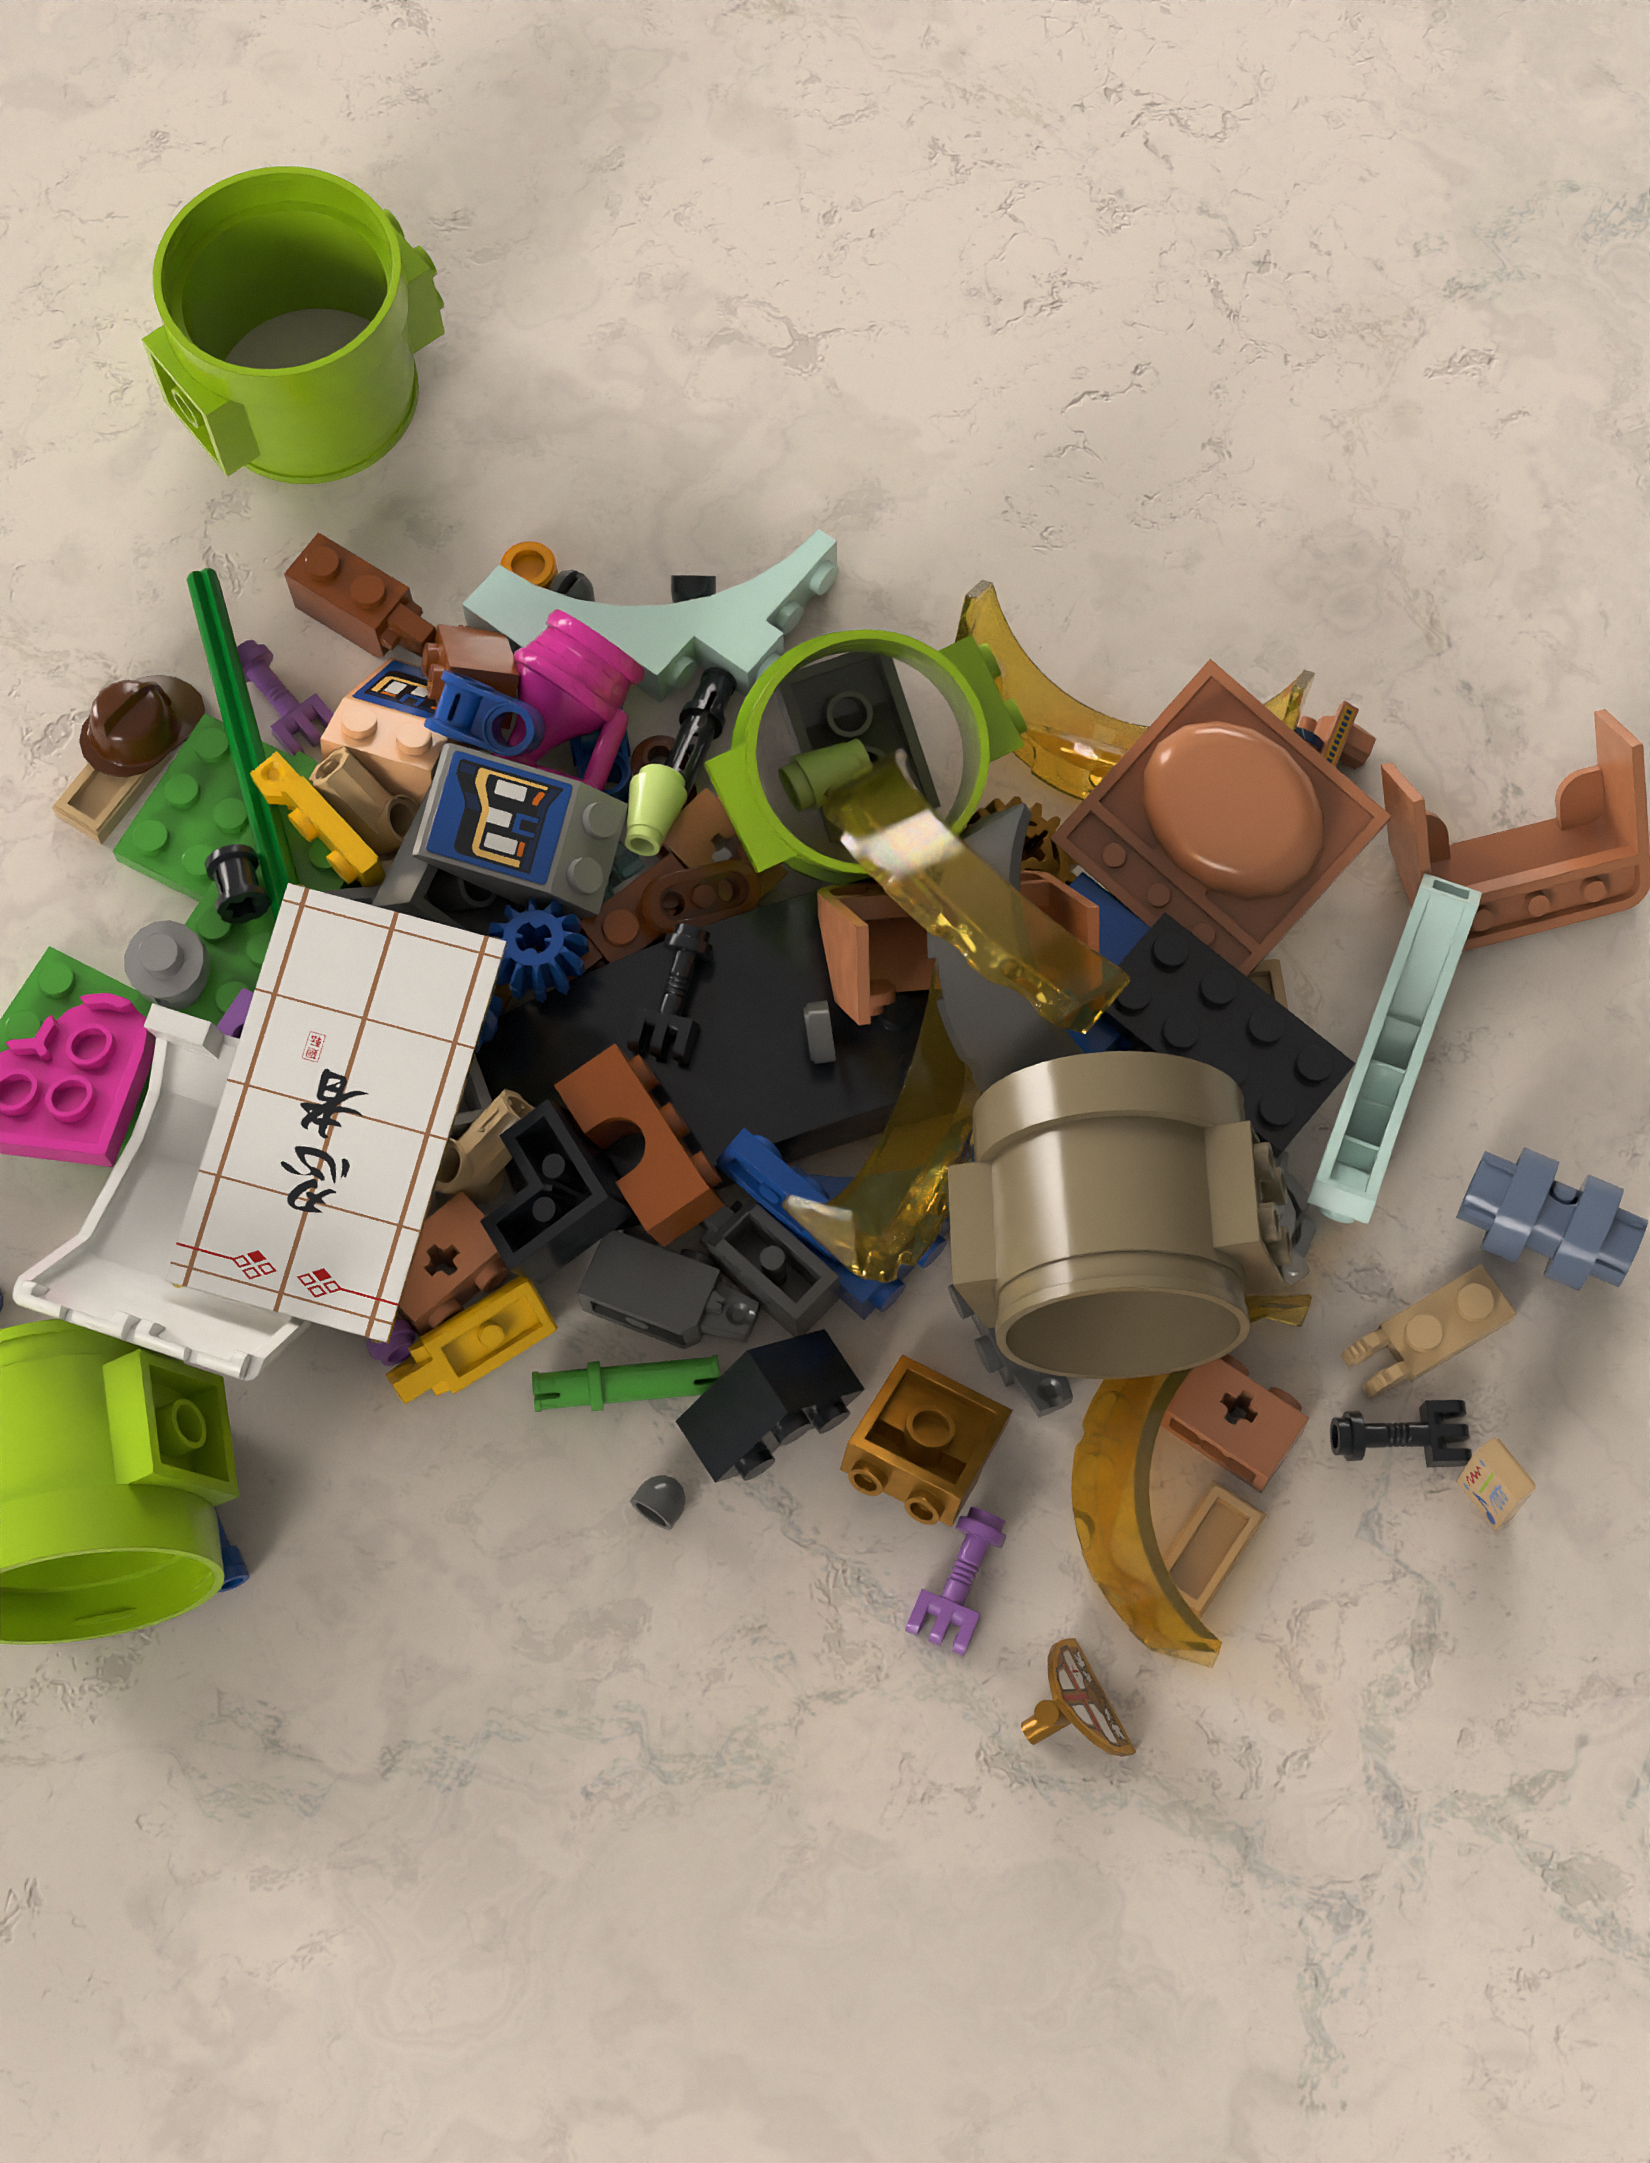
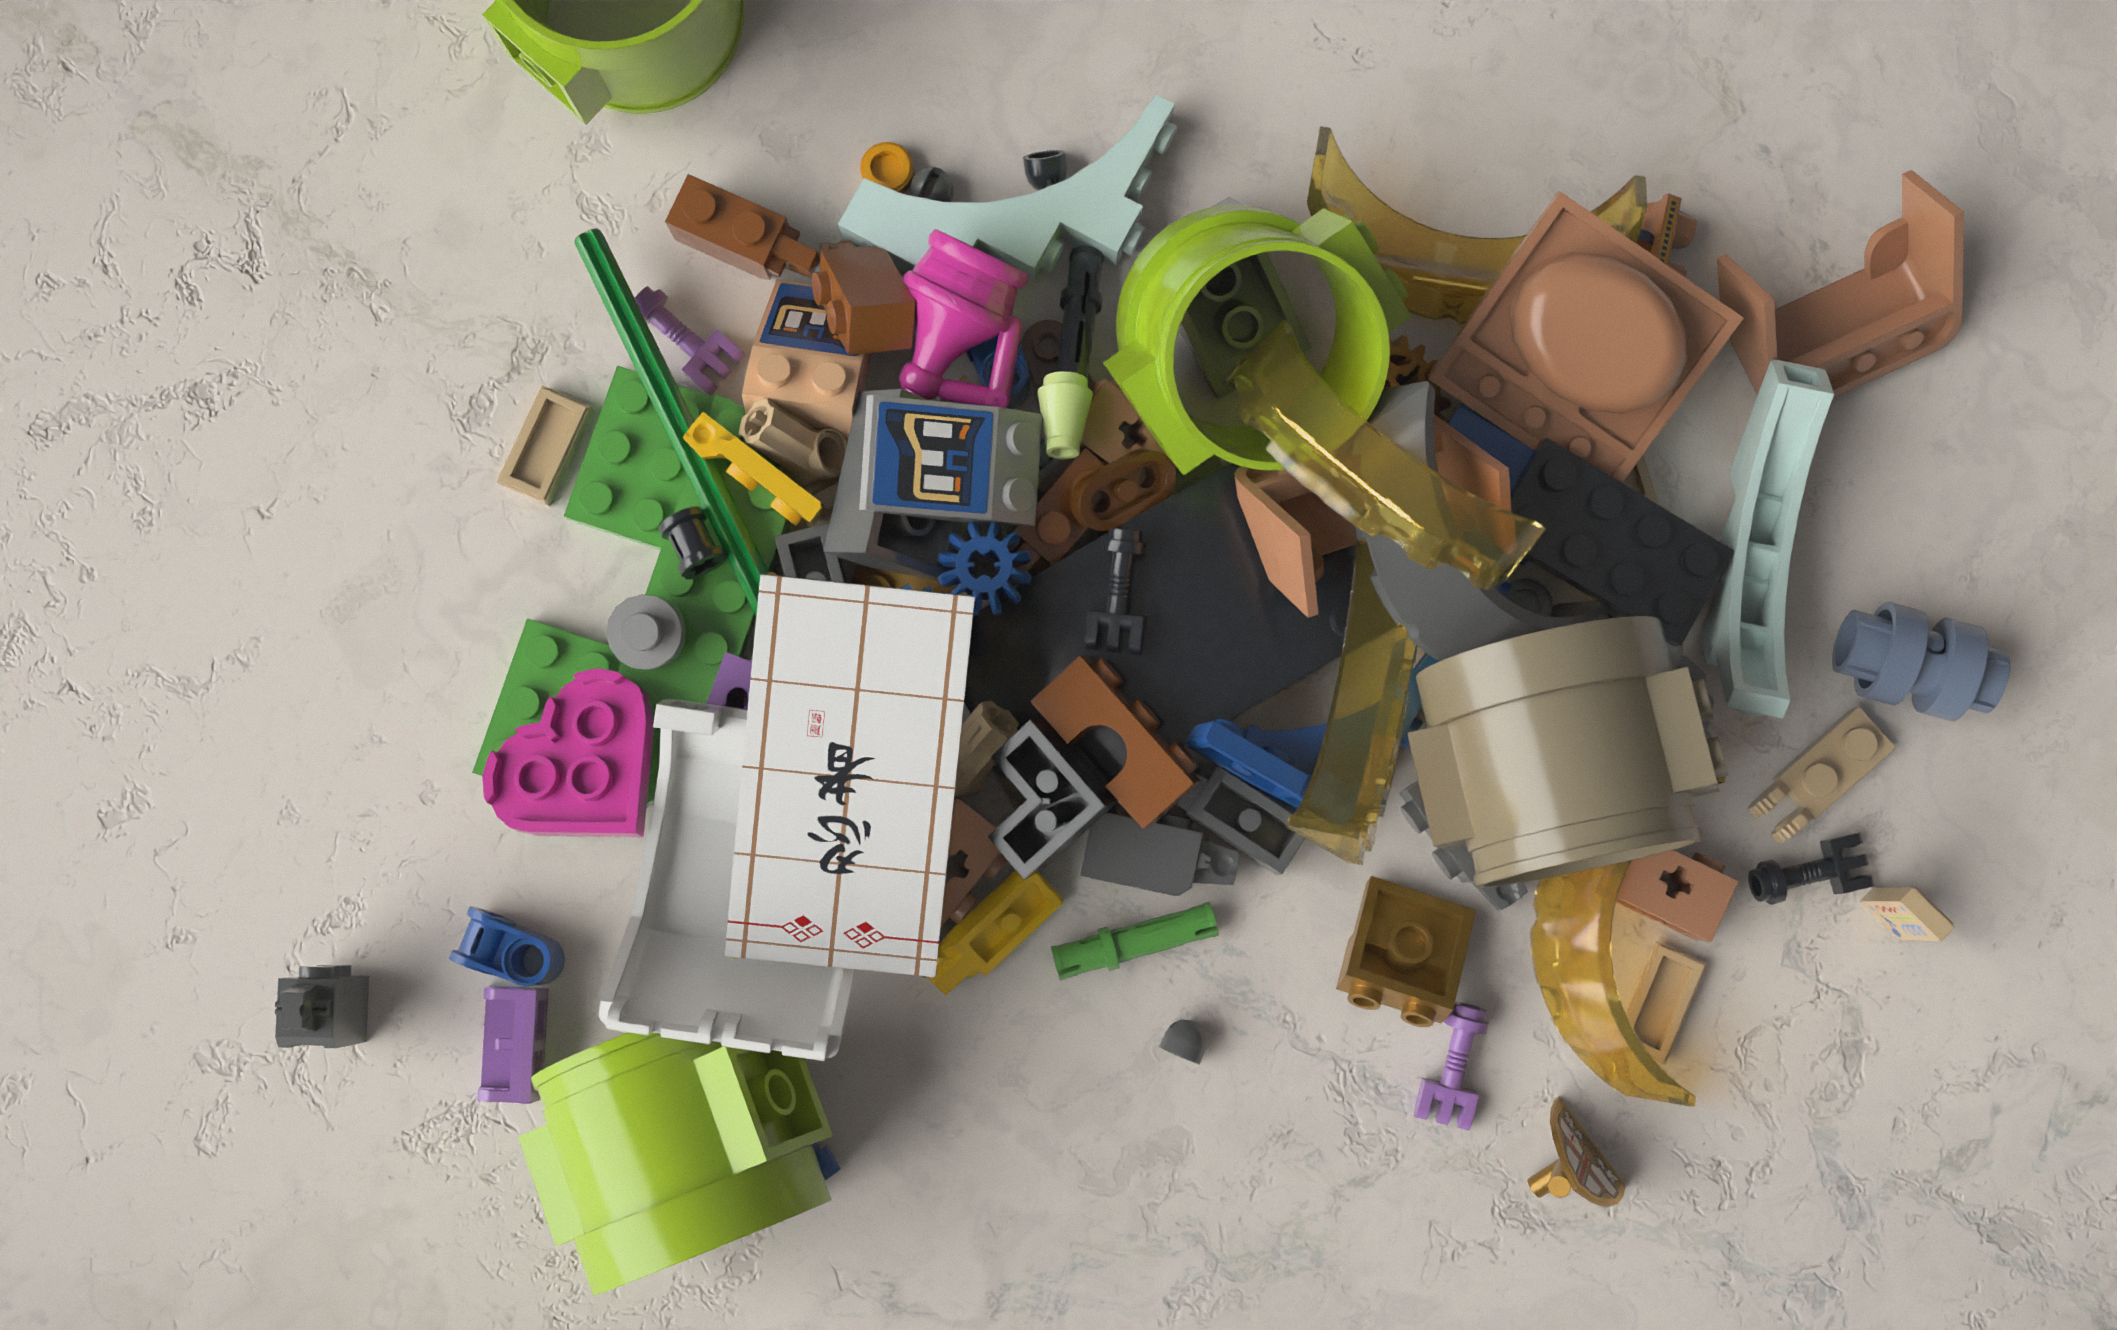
camera: 15 degrees left, 15 degrees up
(139, 724) = (560, 386): reddish brown piece -> none
(475, 712) = (889, 352): blue piece -> none
(769, 1402) = (1270, 948): black brick -> none
(814, 771) = (1212, 358): yellowish green cone -> none
(819, 1032) = (1260, 610): dark grey tile -> none

